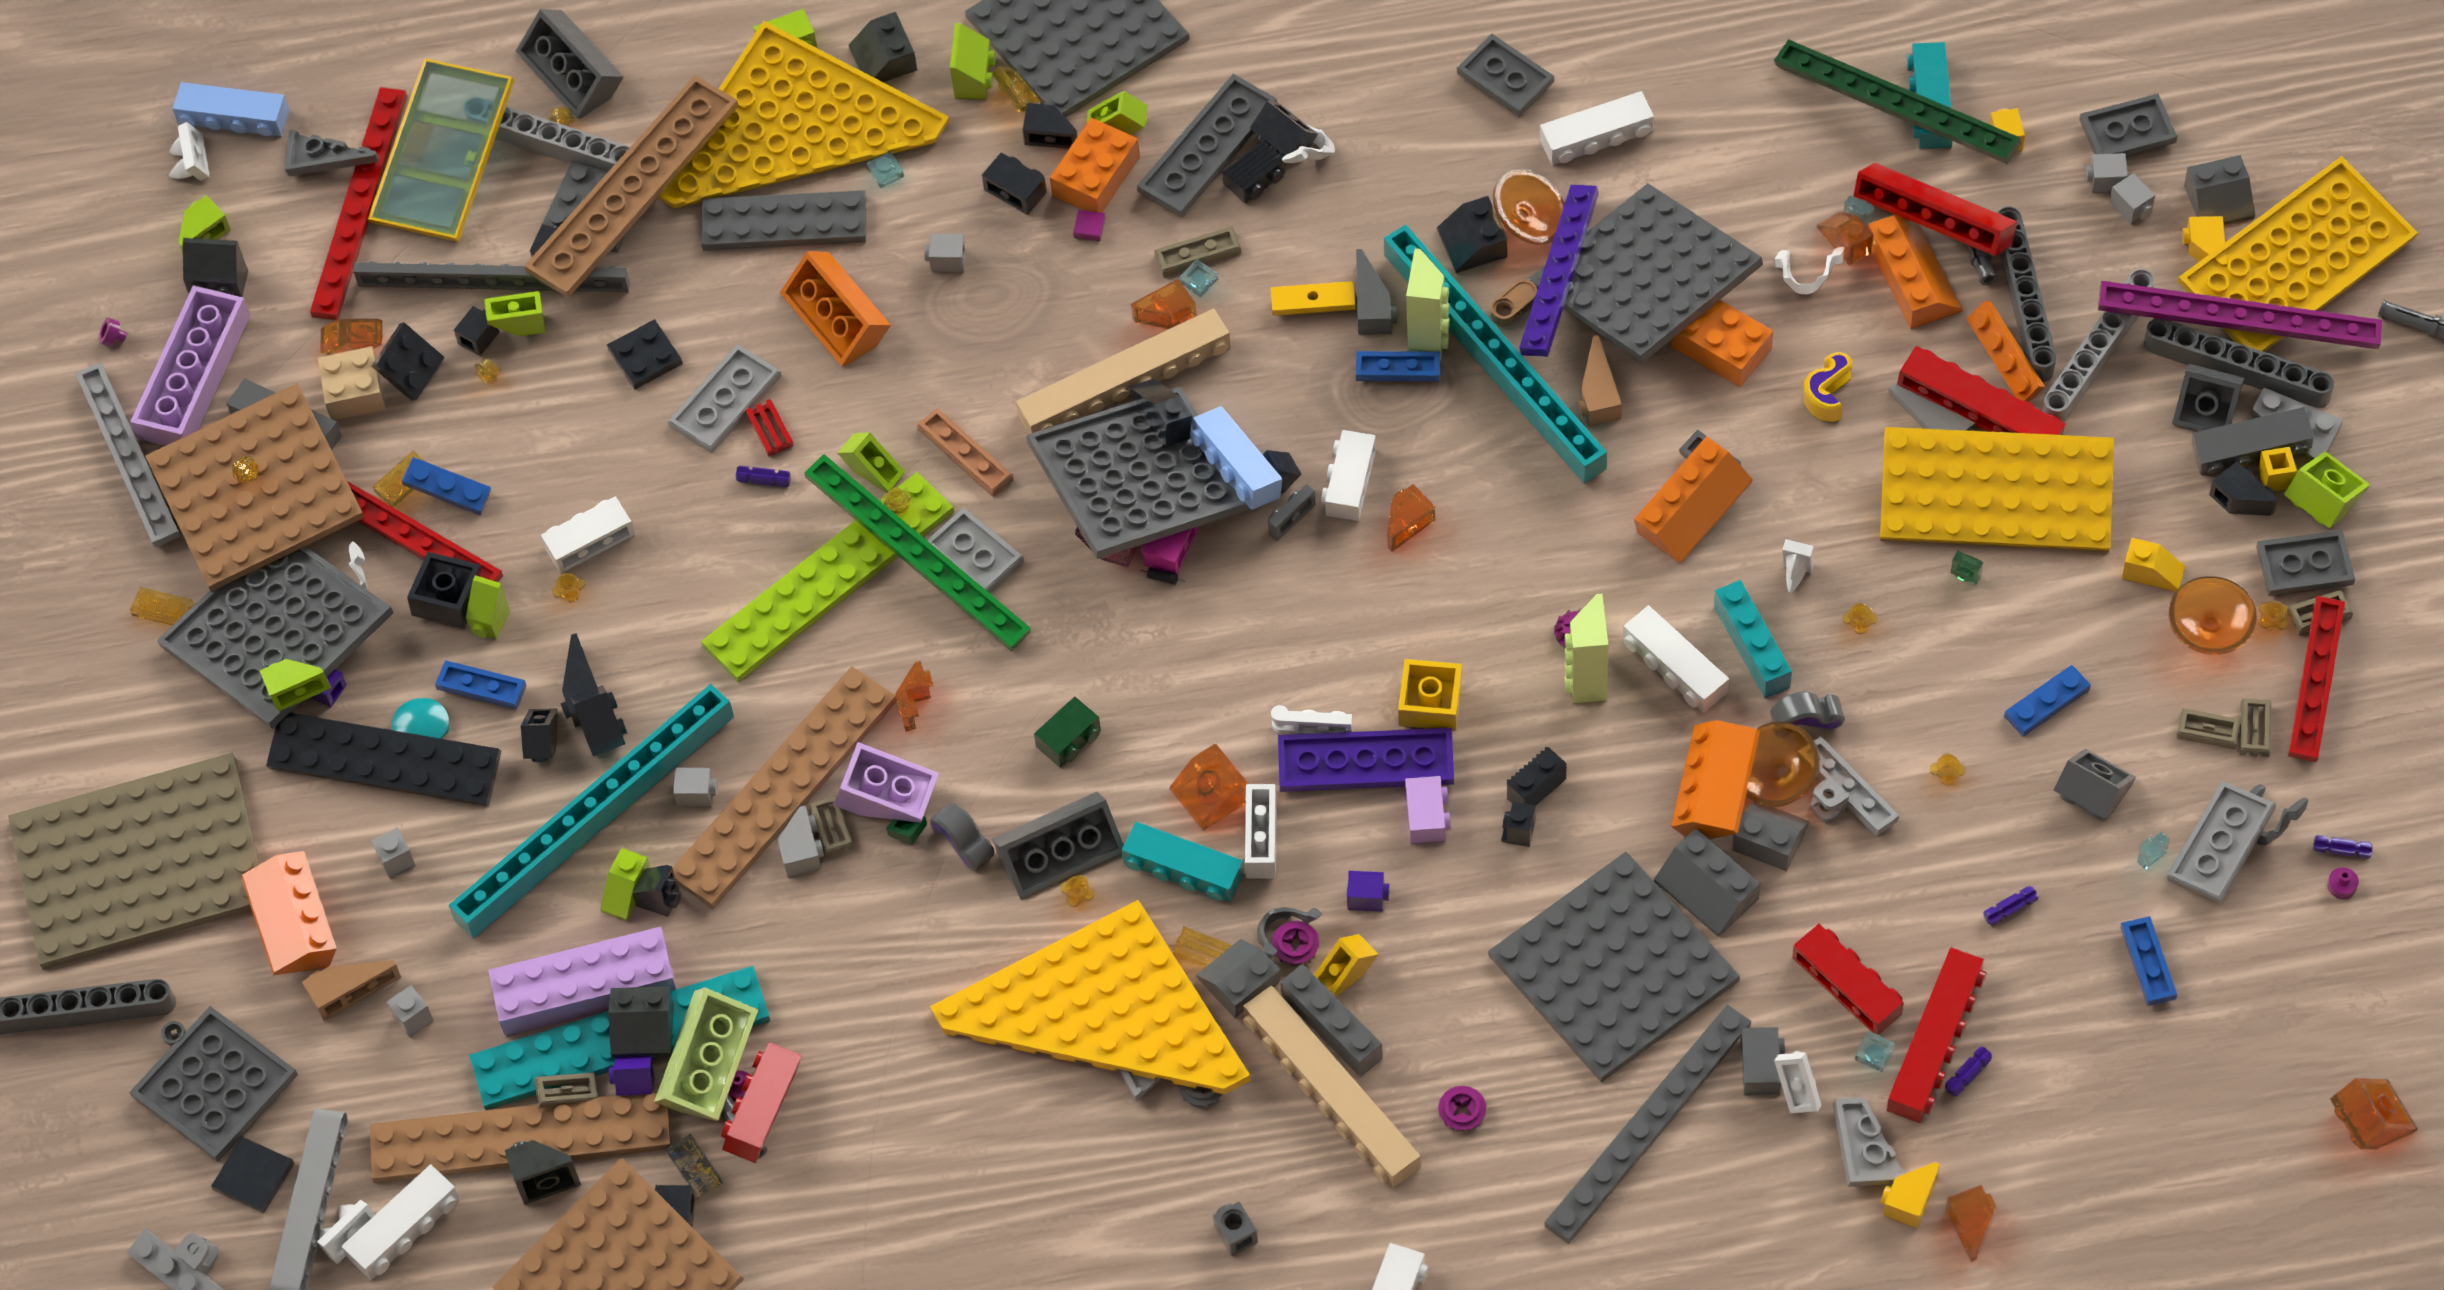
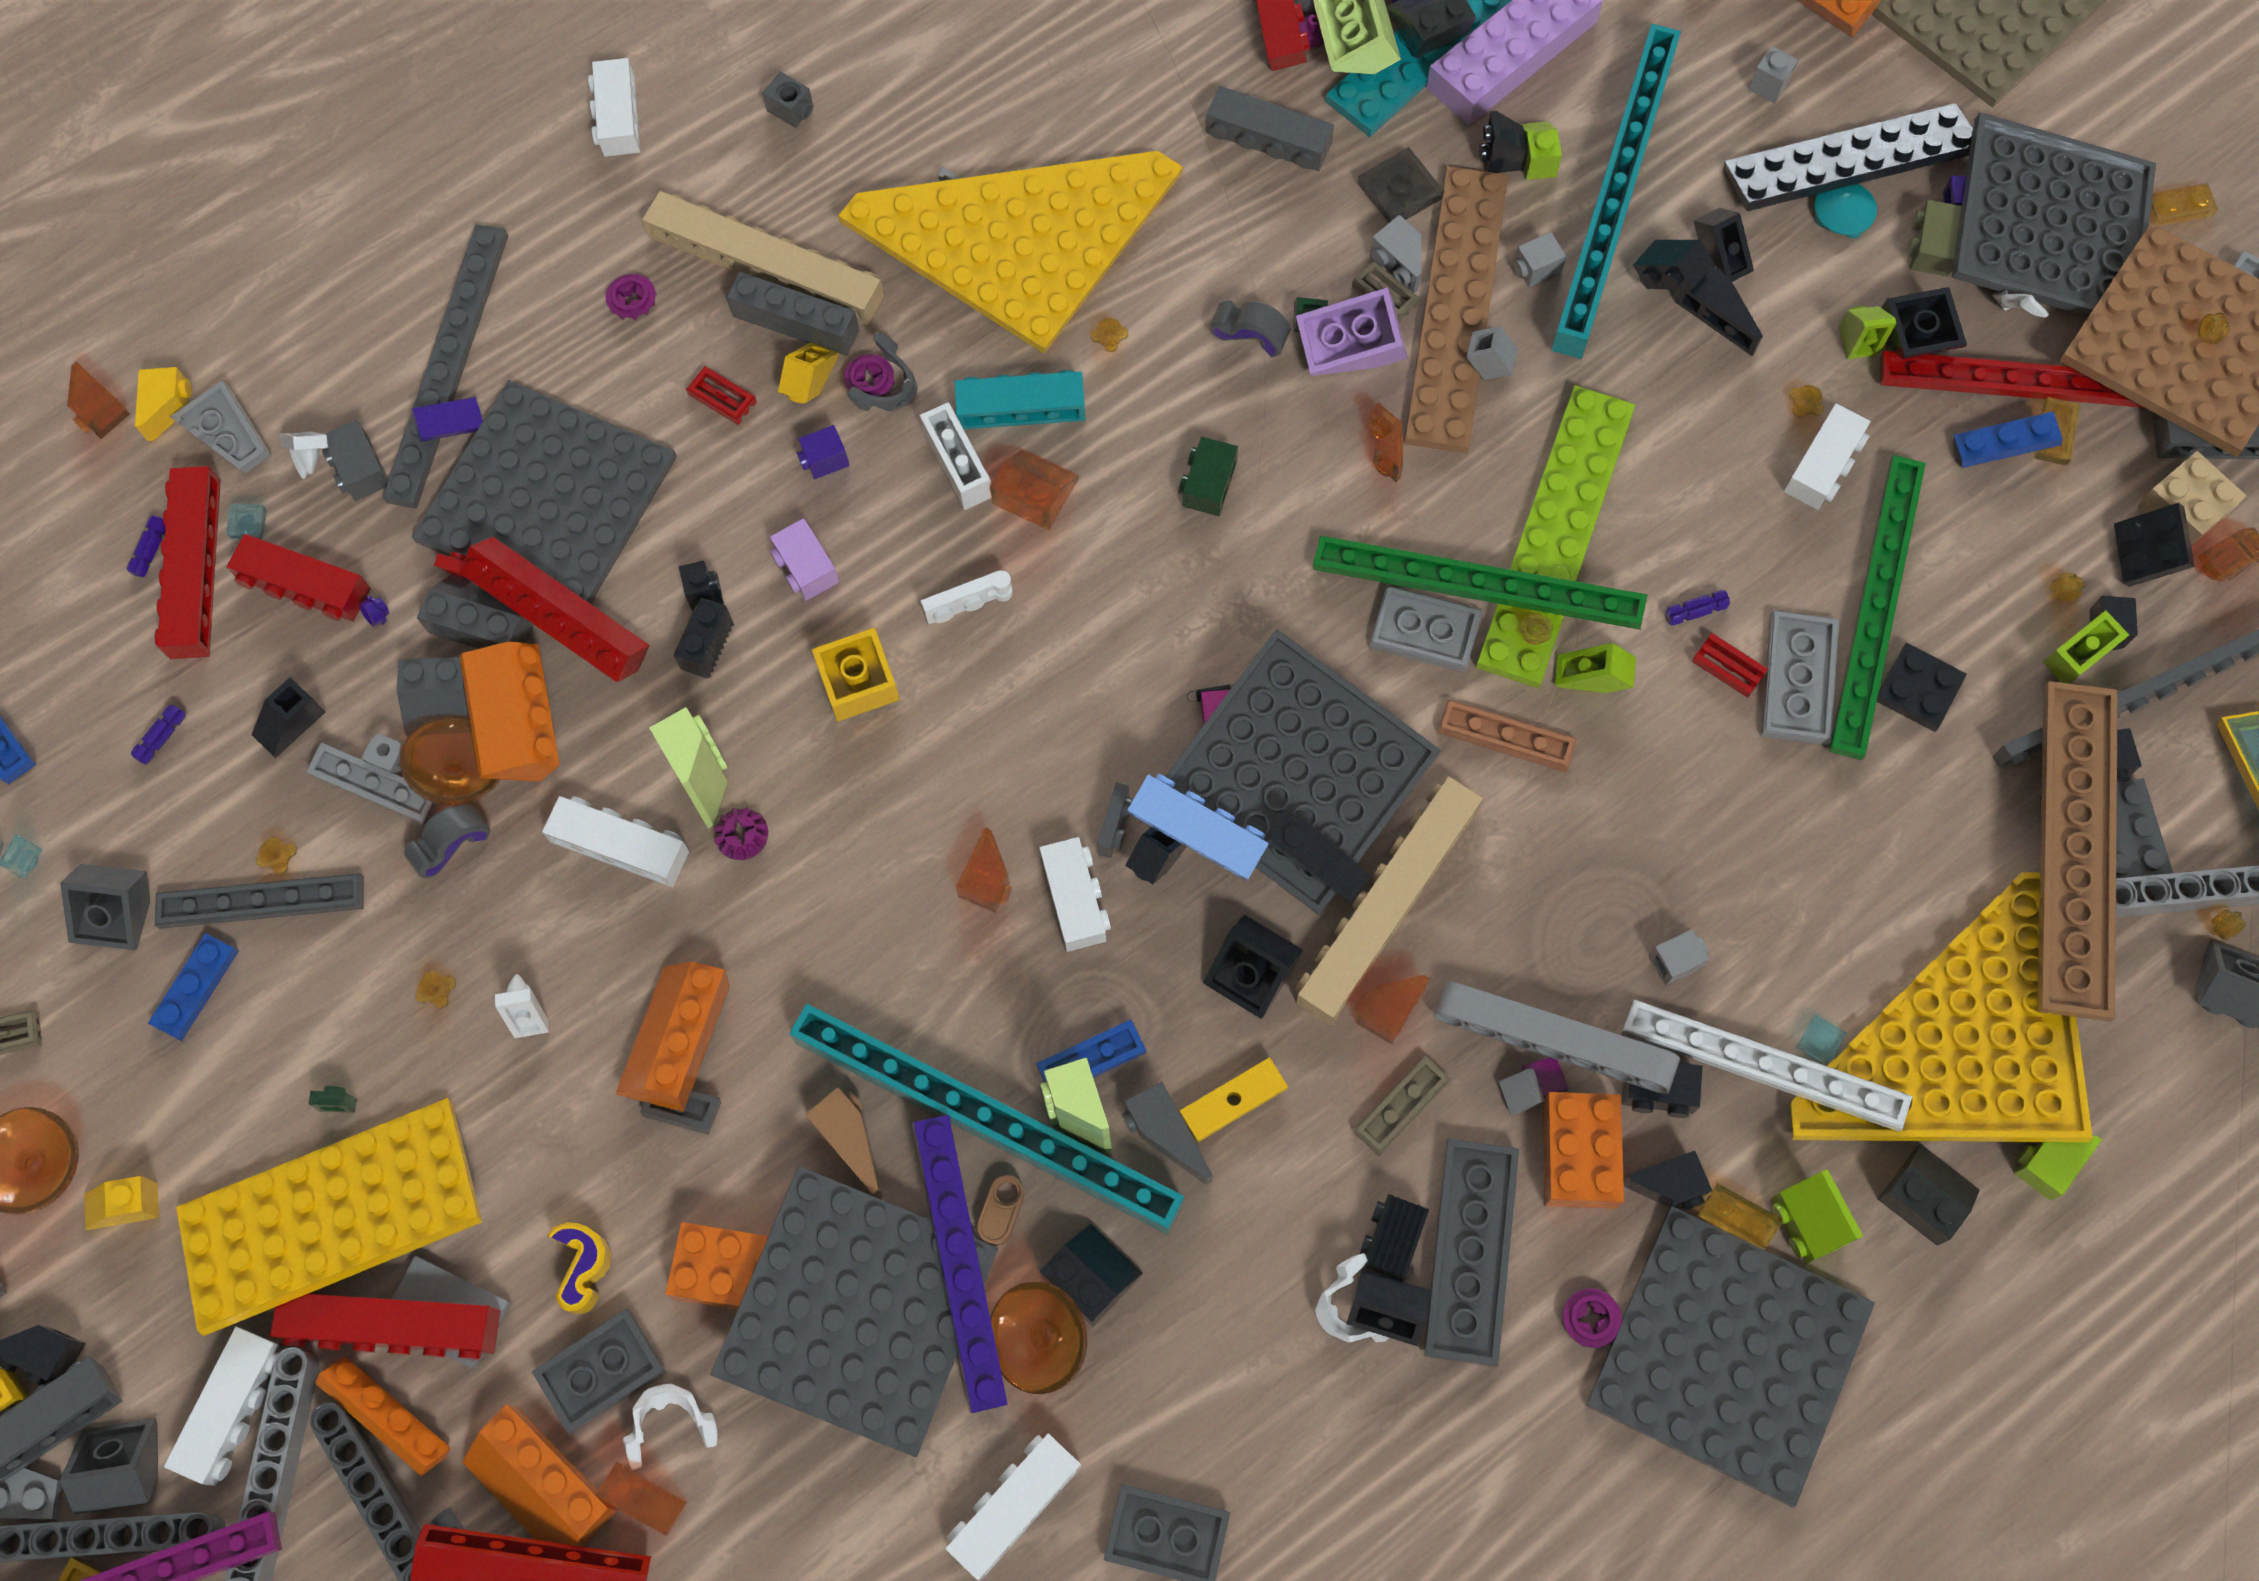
camera: 150 degrees right, 10 degrees up
(293, 682) = (1989, 145): lime slope -> none
(373, 661) = (1935, 238): none -> olive brick
(480, 684) = (1816, 265): blue plate -> none
(631, 418) = (1877, 608): none -> green plate
(761, 903) = (1400, 186): none -> clear smoke plate
(783, 220) = (1888, 920): dark grey plate -> none
(786, 720) = (1492, 353): none -> light grey brick
(834, 307) = (1756, 832): orange slope -> none
(837, 1003) = (1269, 128): none -> dark grey brick
(937, 164) = (1768, 1065): none -> white tile
(1059, 844) = (1153, 364): dark grey slope -> none
(1069, 232) = (1557, 1037): none -> light grey beam
(1111, 220) = (1522, 1091): none -> light grey tile
(1121, 112) = (1599, 1235): lime slope -> none
(1147, 71) = (1601, 1304): none -> magenta gear
(1198, 278) = (1378, 1064): clear light blue plate -> none
(1202, 938) = (954, 329): clear yellow tile -> none
(1239, 976) = (905, 314): dark grey slope -> none
(1246, 373) = (1252, 966): none -> black slope
(1364, 759) = (893, 584): dark purple plate -> none
(1437, 1006) = (741, 408): none -> red tile
(1646, 845) = (554, 609): none -> red brick
(1667, 1058) = (447, 419): none -> dark purple tile
(1712, 929) = (450, 564): none -> red plate
(1752, 639) = (540, 900): teal brick -> none
(1795, 927) = (374, 611): none -> dark purple plate
(1842, 319) = (598, 1371): none -> dark grey plate
(1860, 208) = (636, 1539): clear light blue plate -> none
(1898, 863) = (285, 717): none -> black slope
(1973, 742) = (259, 901): none -> dark grey tile
(2117, 399) = (225, 1408): none -> white brick

